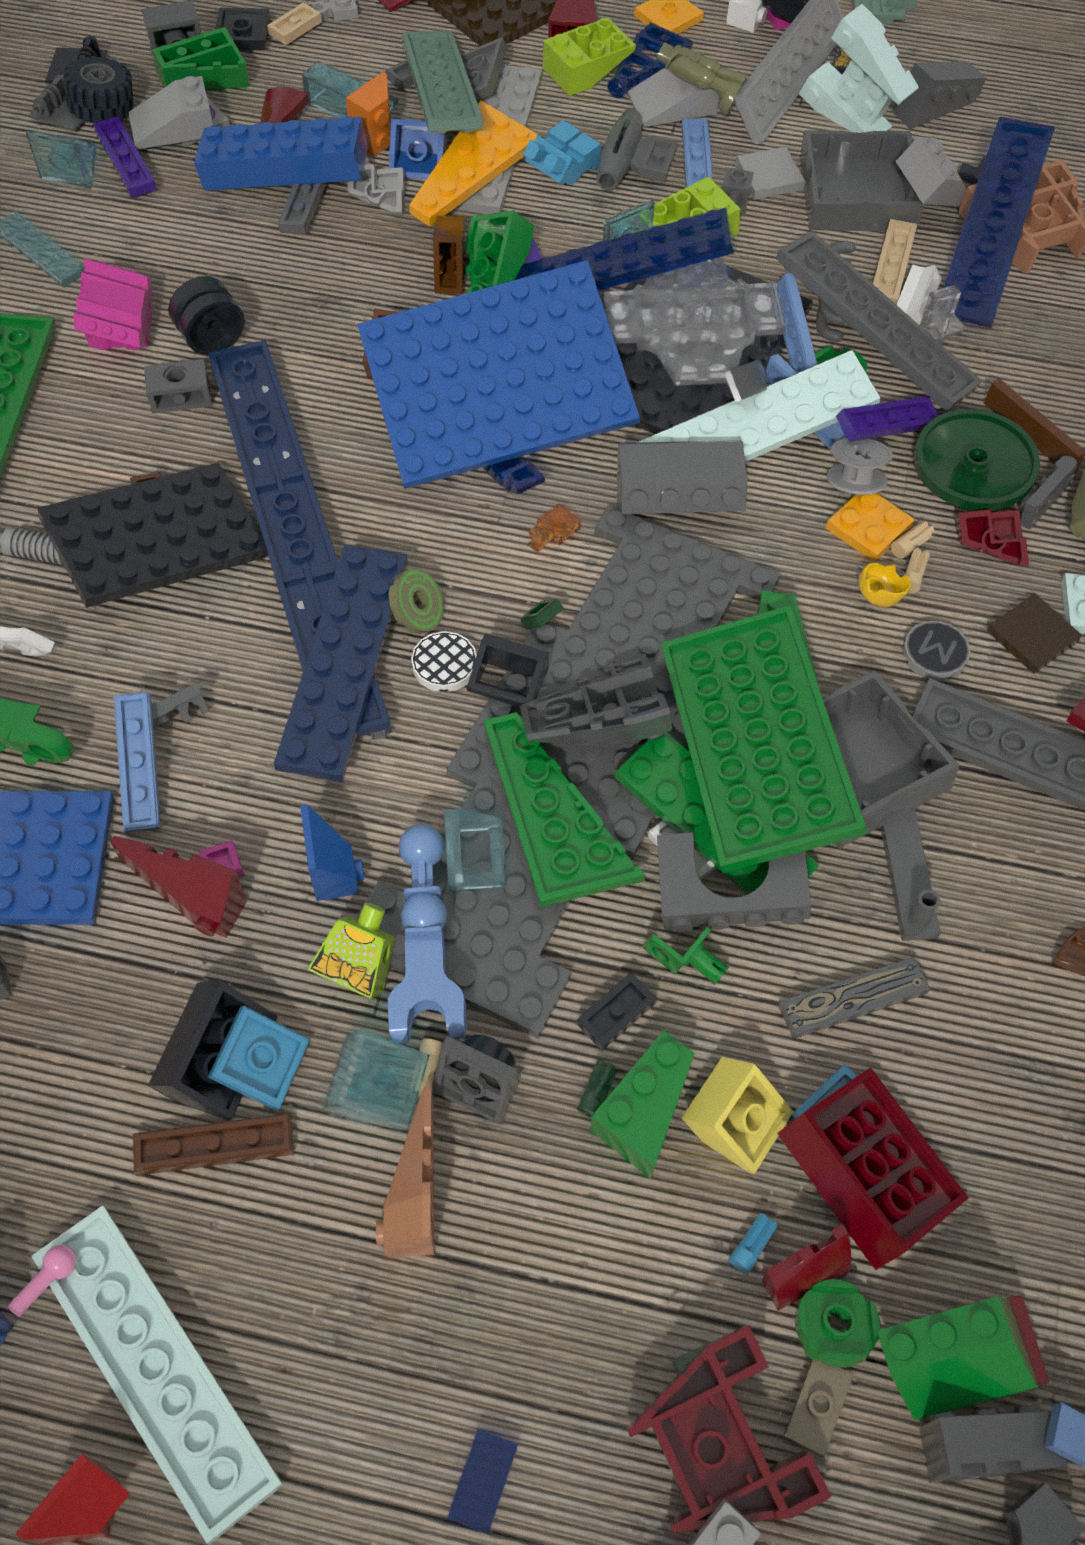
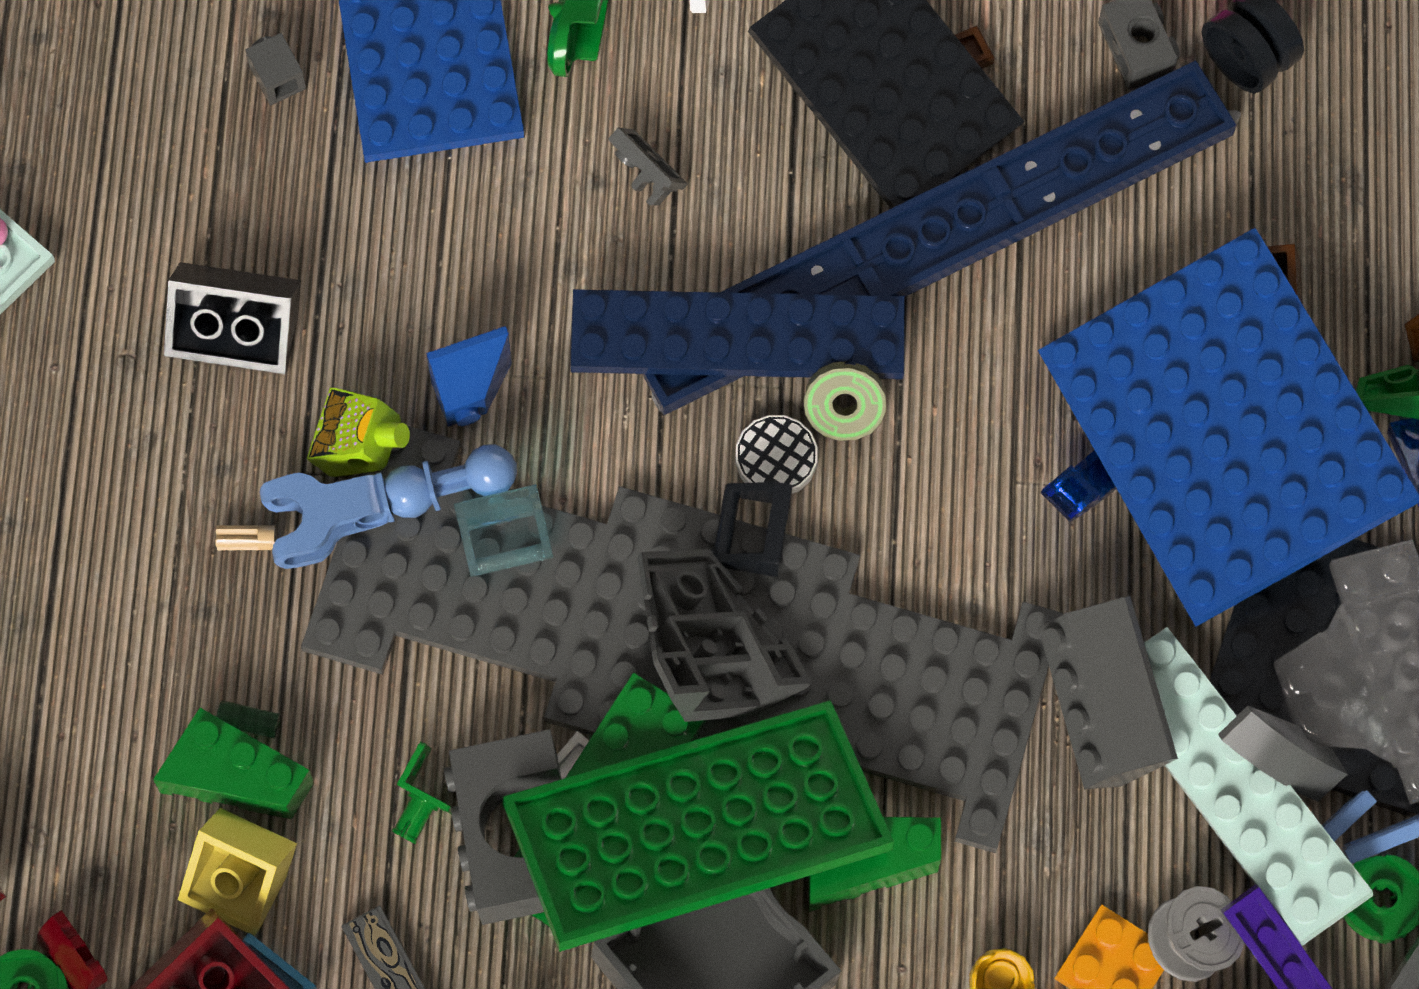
camera: 80 degrees right, 10 degrees up
(137, 762) = (558, 146): medium blue tile -> none
(197, 888) = (408, 249): dark red wedge -> none
(212, 1144) = (135, 345): reddish brown tile -> none
(225, 855) = (458, 270): dark pink tile -> none
(259, 1058) = (226, 364): dark azure tile -> none
(376, 1081) = (216, 486): clear light blue slope -> none
(409, 1206) = (93, 549): nougat wedge -> none
(477, 1075) = (237, 586): dark grey piece -> none
(541, 613) = (865, 556): dark green tile -> none
(554, 526) = (1017, 554): clear orange plate -> none
(557, 827) = (545, 621): green wing -> none
(616, 1011) = (340, 725): black plate -> none
(747, 1252) = (99, 904): dark azure piece -> none

